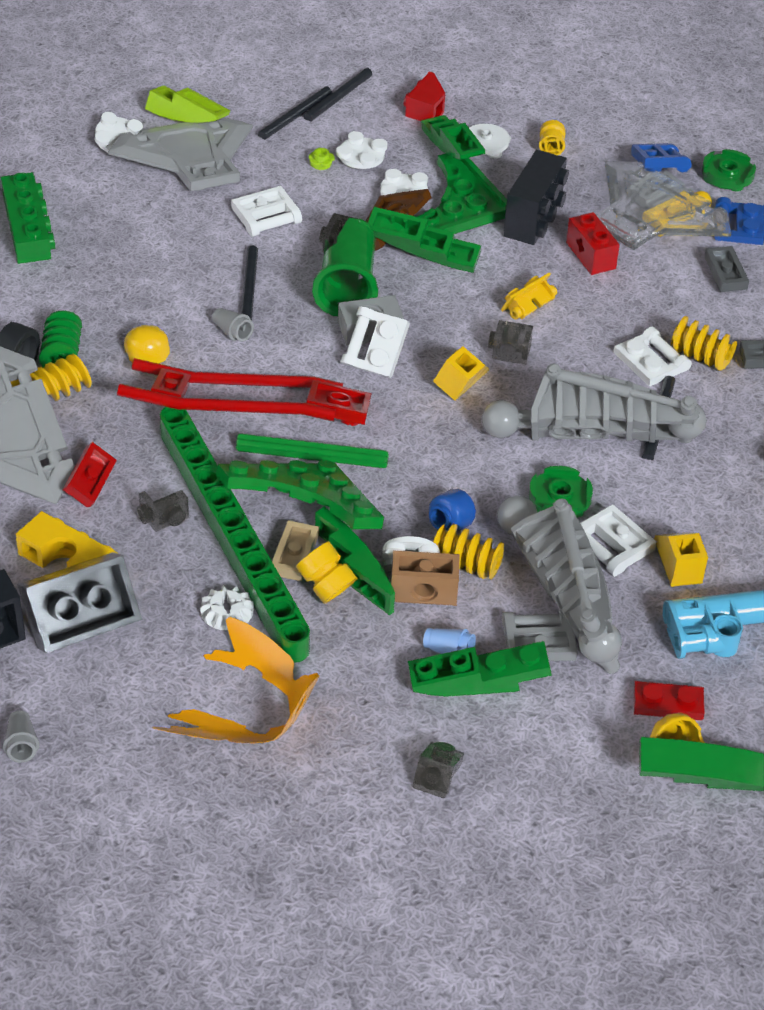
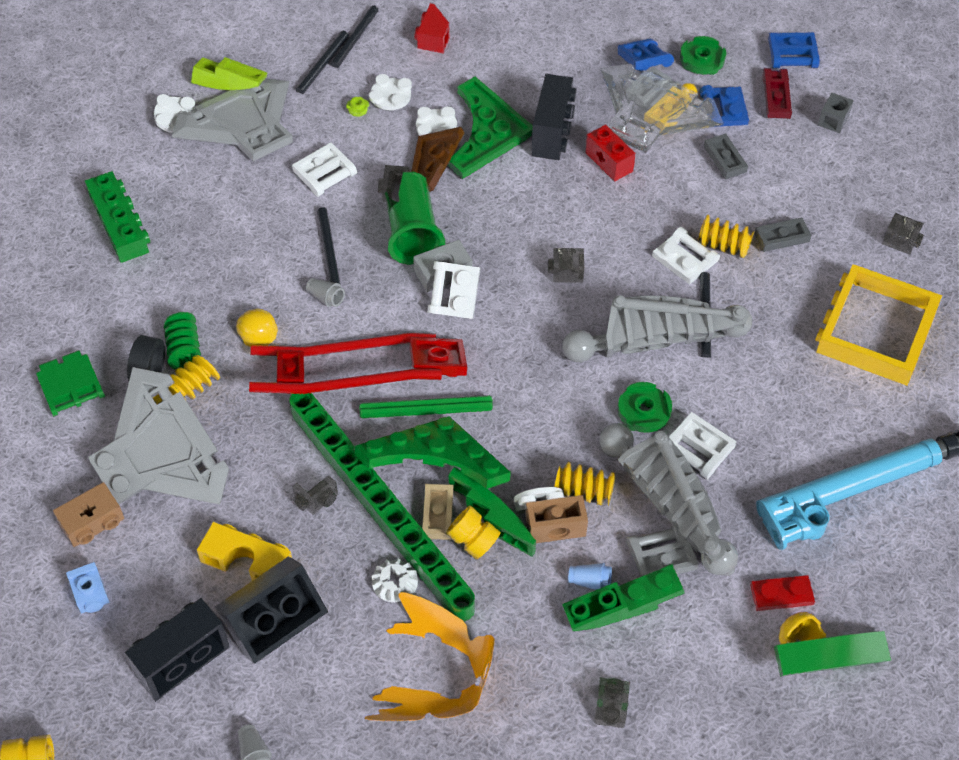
camera: 10 degrees left, 10 degrees up
(89, 474) = (243, 471): red plate -> none
(427, 242) = (467, 177): green slope -> none
(450, 508) = (560, 446): blue head -> none
(452, 137) = (466, 67): green slope -> none
(460, 373) = (533, 306): yellow slope -> none
(492, 138) = (493, 61): white piece -> none
(536, 289) = (576, 209): yellow hinge -> none
(552, 137) = (549, 50): yellow wheel -> none
(682, 557) = (761, 451): yellow slope -> none

